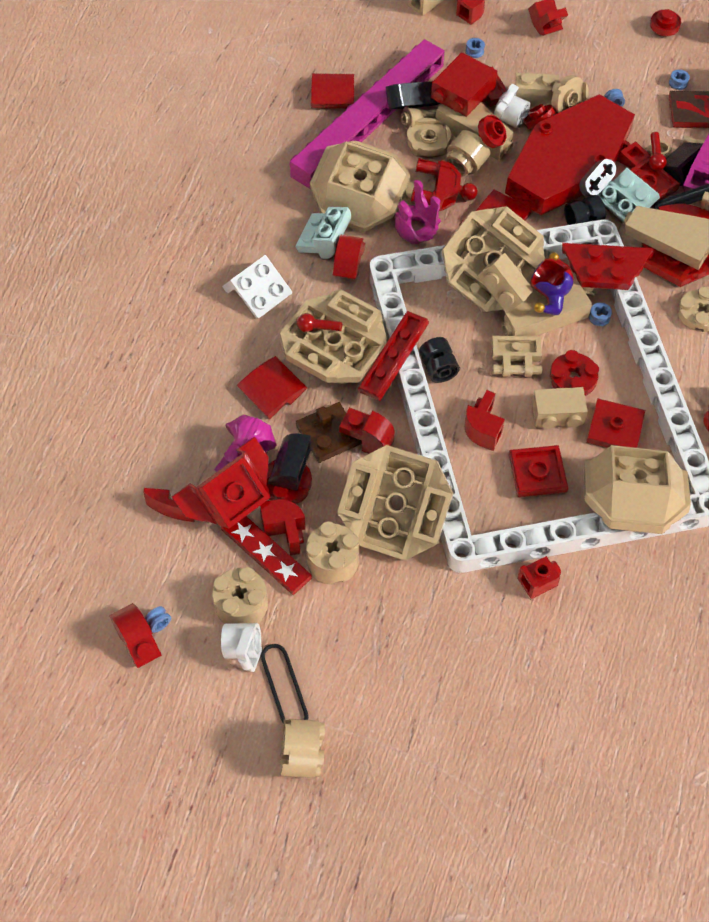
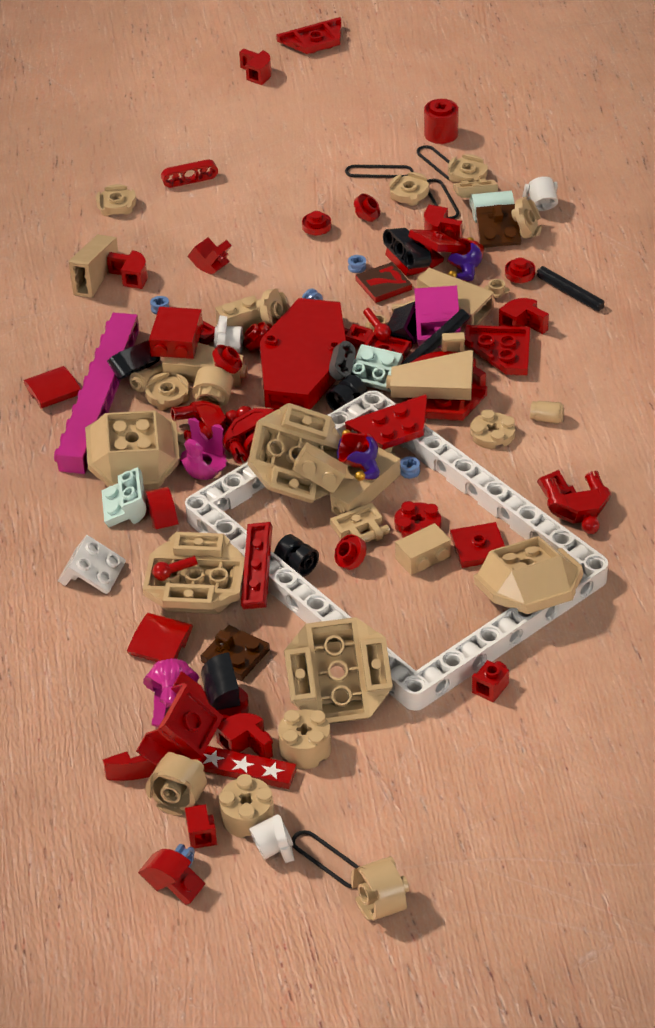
camera: 25 degrees left, 15 degrees down
(189, 595) = (200, 827): none -> red brick
(192, 544) = (176, 783): none -> tan brick
(372, 429) = (277, 630): red brick -> none
(459, 210) = (241, 429): none -> red connector
(481, 425) = (366, 590): red brick -> none
(490, 377) = (350, 552): none -> red plate
(538, 471) = (437, 604): red plate -> none

